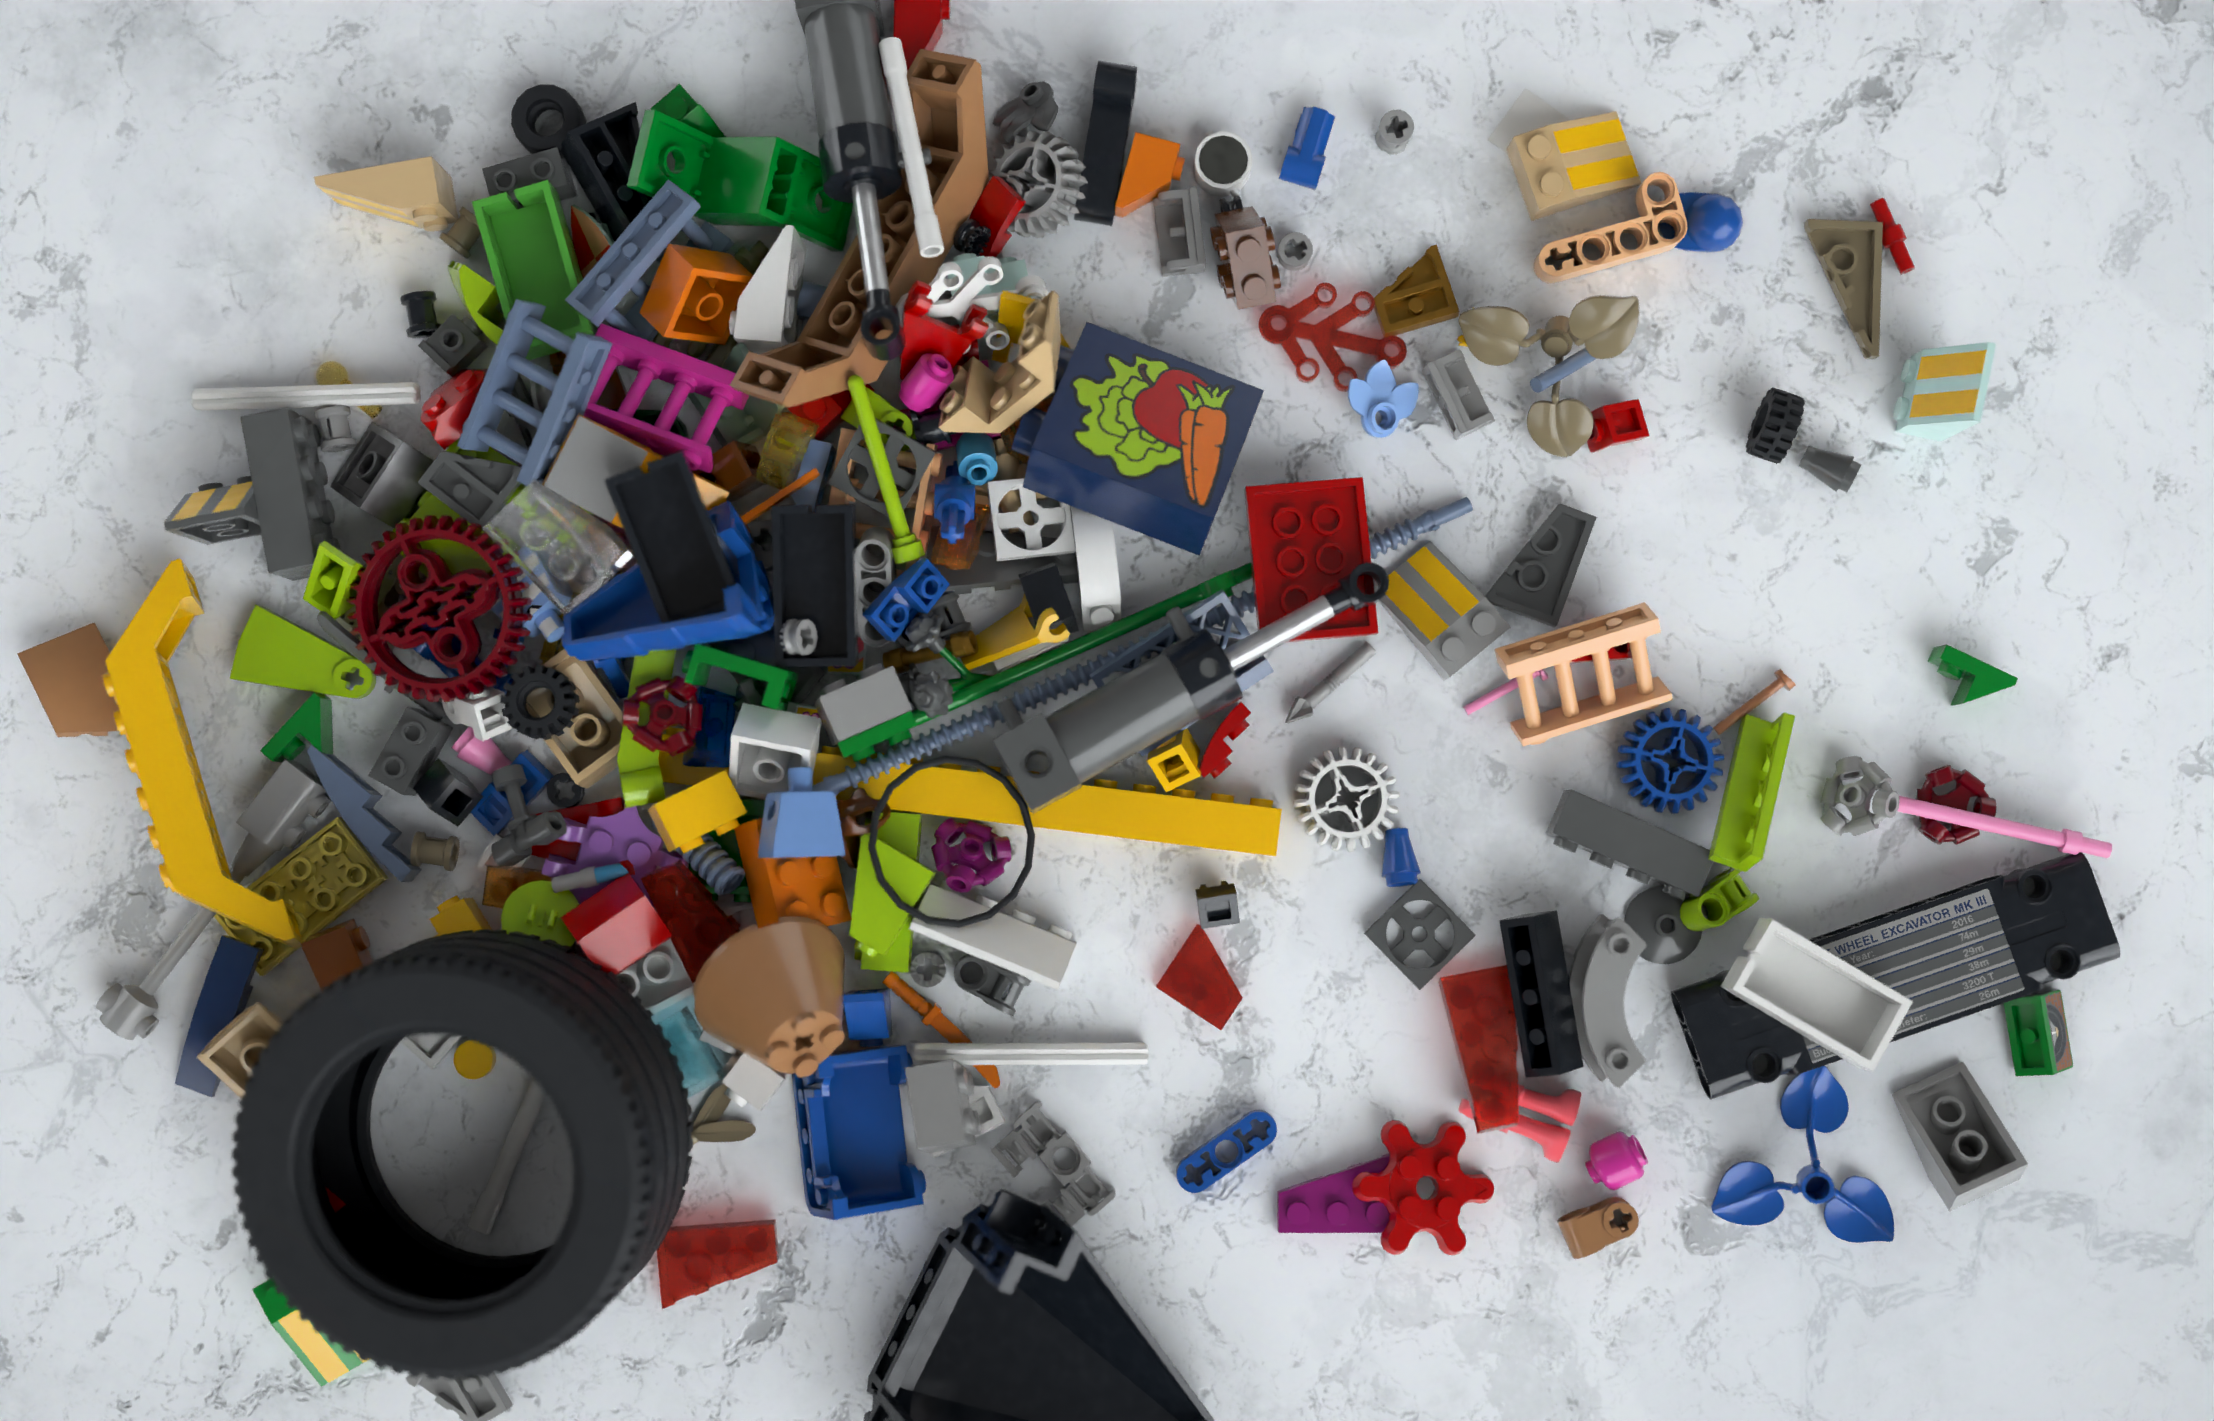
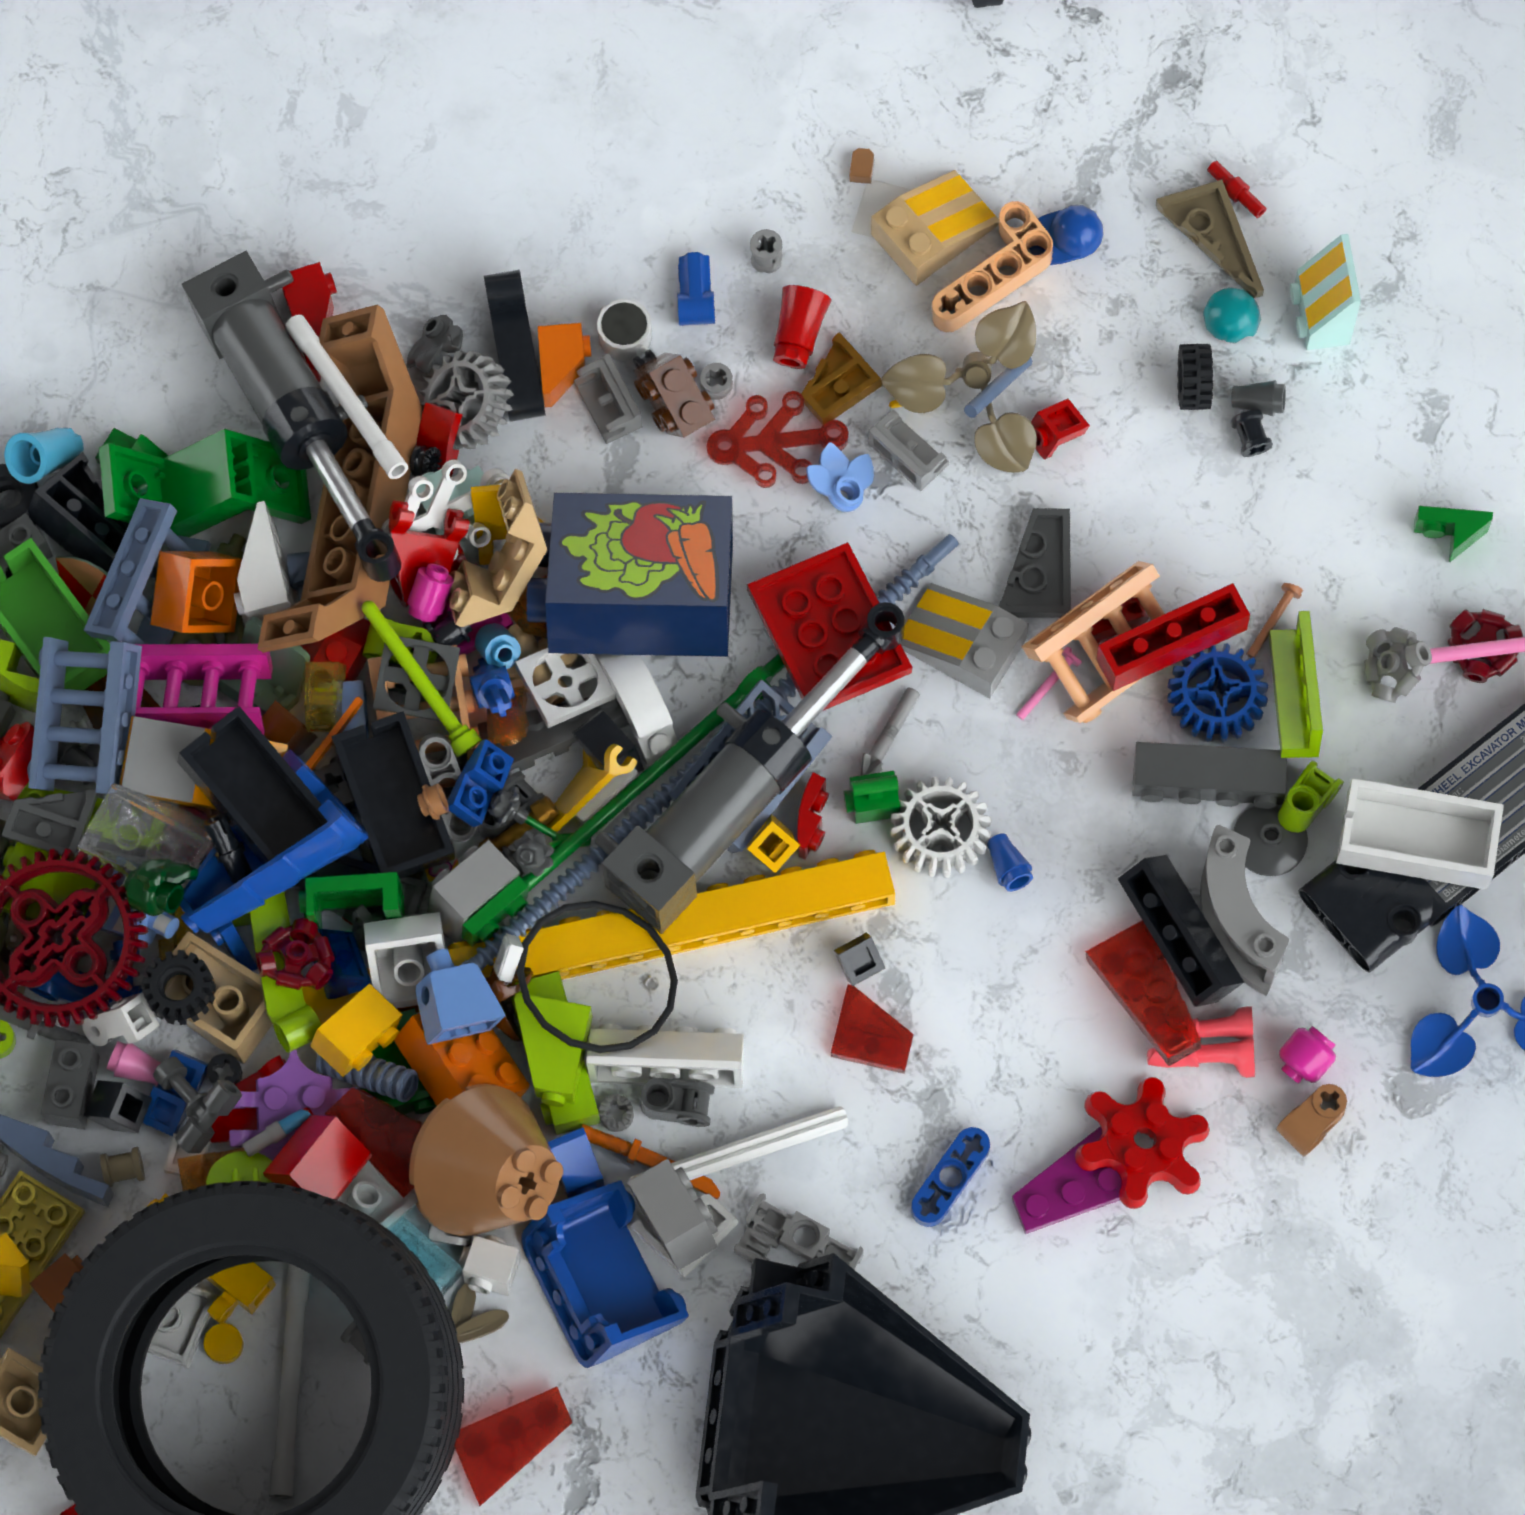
camera: 15 degrees left, 15 degrees down
(546, 600) = (157, 885): none -> dark green head
(594, 89) = (41, 453): none -> medium azure plant
(630, 589) = (228, 849): none -> black pin
(799, 637) = (395, 845): light grey bush -> none
(849, 610) = (433, 801): none -> medium nougat plate
(870, 793) = (508, 958): none -> white tile
(969, 854) = (617, 993): magenta piece -> none
(1291, 744) = (872, 797): none -> green brick
(1398, 224) = (799, 324): none -> red plant
(1430, 923) = (1067, 960): dark grey piece -> none
(1524, 73) = (862, 166): none -> medium nougat piece
(1650, 699) = (1173, 637): none -> red brick
(1807, 502) = (1251, 433): none -> black bush
(1835, 369) = (1232, 315): none -> teal hair

